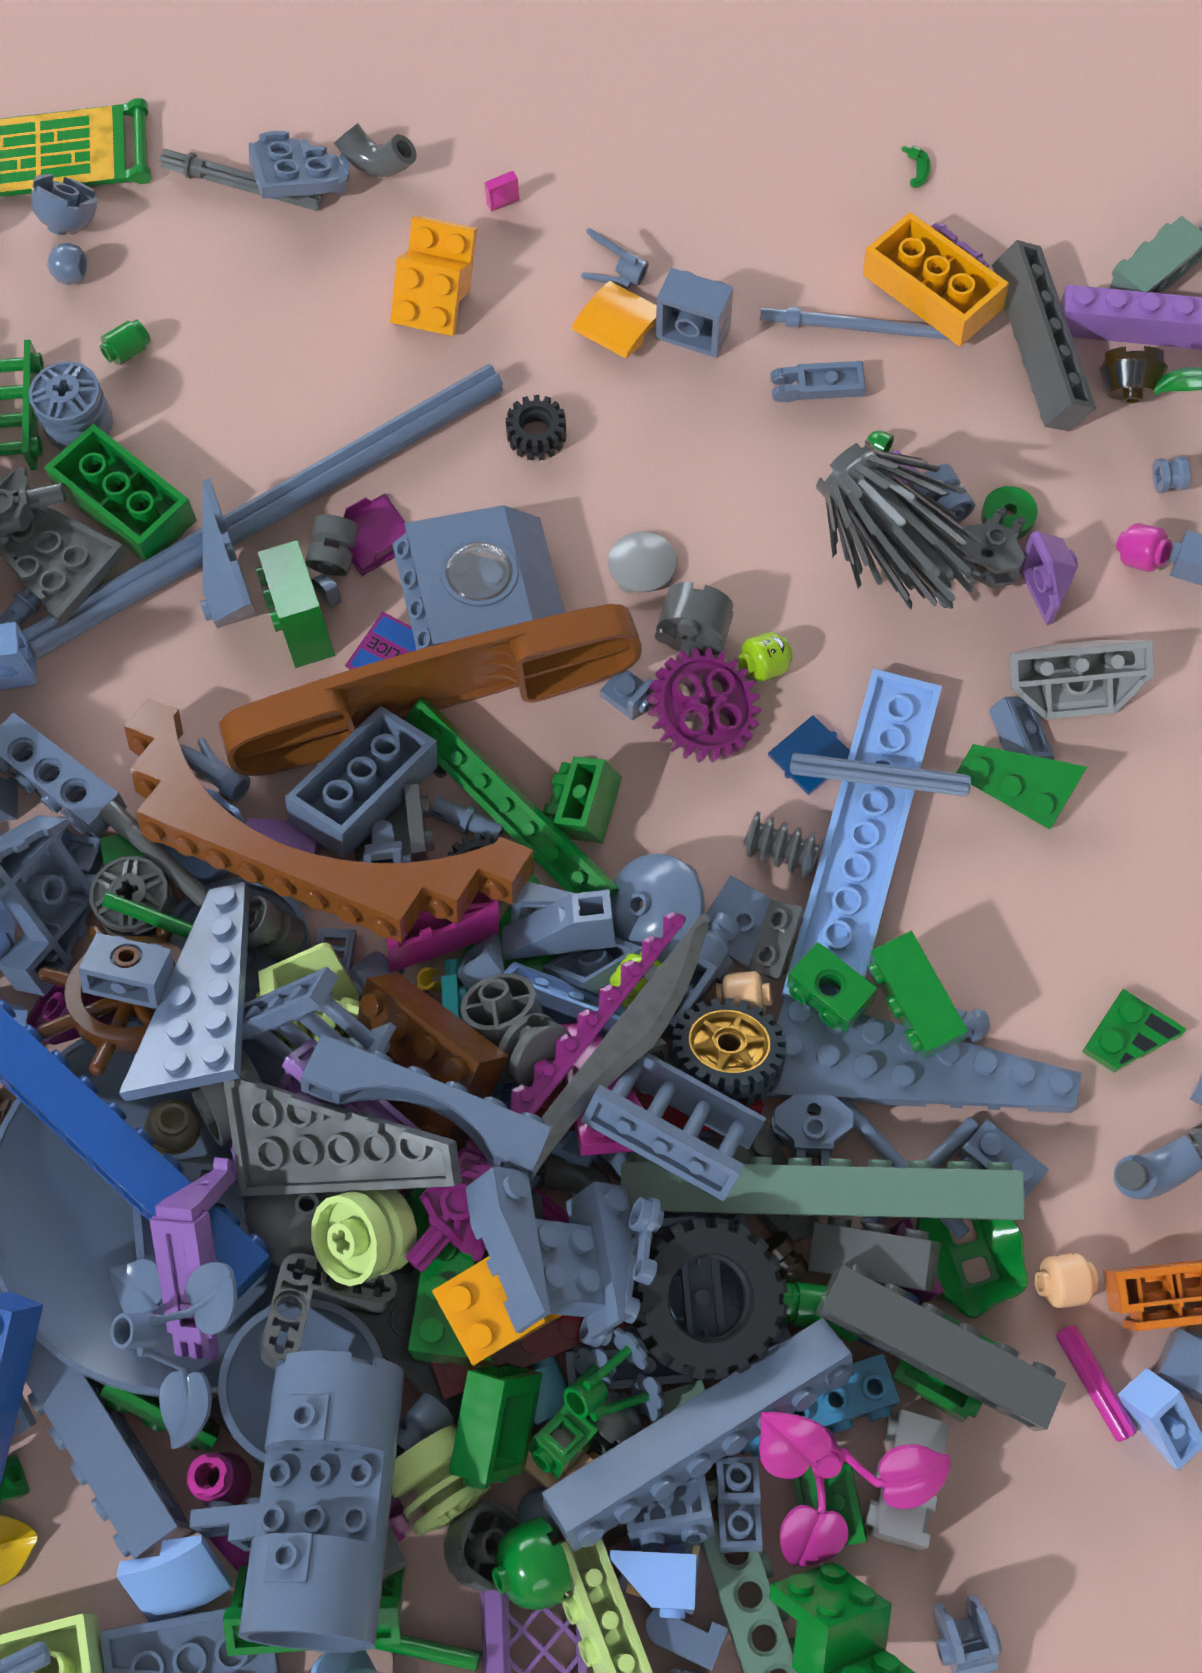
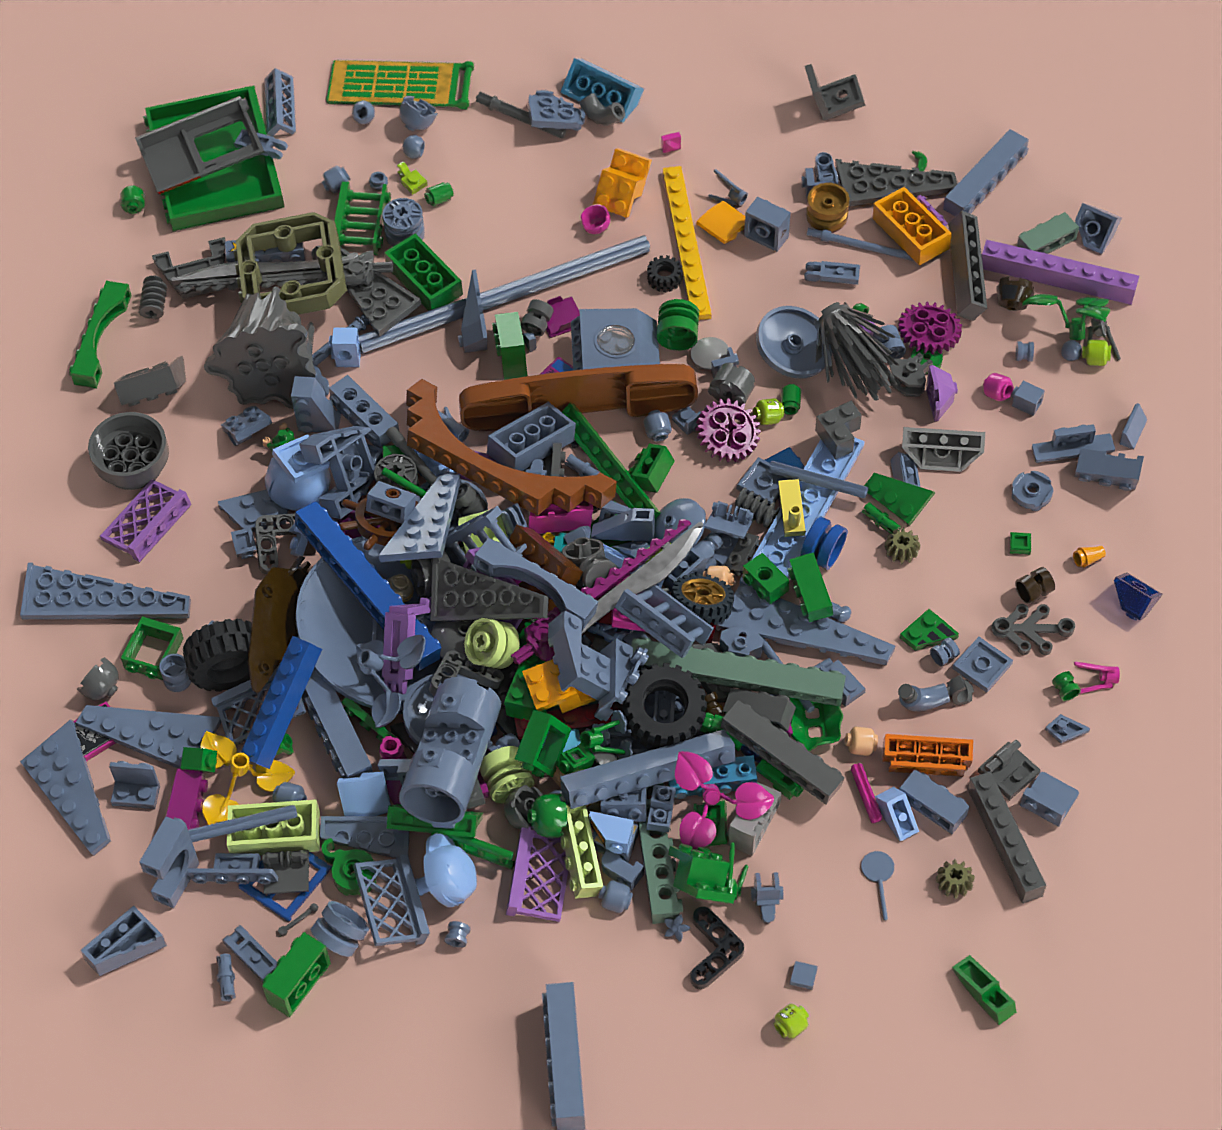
camera: 10 degrees right, 10 degrees down
(14, 333) = (377, 180): none -> sand blue plate
(33, 1598) = (288, 792): none -> sand blue head
(74, 324) = (413, 180): none -> lime plate
(342, 100) = (609, 88): none -> dark azure slope
(358, 960) = (513, 516): none -> sand blue arm
(400, 347) = (595, 219): none -> dark pink hair
(563, 368) = (686, 240): none -> yellow plate
(578, 714) = (657, 425): none -> sand blue head
(579, 521) = (678, 324): none -> green wheel
(683, 572) = (732, 358): none -> sand blue bracket
(743, 886) = (729, 523): none -> sand blue hinge
(745, 69) = (828, 95): none -> dark grey bracket
(752, 237) = (808, 180): none -> sand blue bracket
(769, 203) = (825, 168): none -> sand blue piece
(778, 521) = (789, 342): none -> sand blue dish
(781, 793) = (761, 481): none -> sand blue plate
(787, 266) = (827, 207): none -> pearl gold wheel
(798, 625) = (791, 399): none -> green brick
(845, 837) = (791, 508): none -> light yellow piece
(862, 209) = (875, 181): none -> dark grey wing
(891, 675) = (836, 428): none -> dark grey brick
(900, 1632) = (731, 883): none -> green plant
(915, 897) = (825, 542): none -> blue wheel
(1001, 828) = (881, 519): none -> green pin
(1004, 457) = (929, 328): none -> magenta gear
(1033, 169) = (986, 173): none -> sand blue brick
(1045, 863) = (902, 545): none -> olive gear
(1151, 1536) = (878, 868): none -> sand blue piece
(1171, 1071) = (945, 651): none -> sand blue wheel

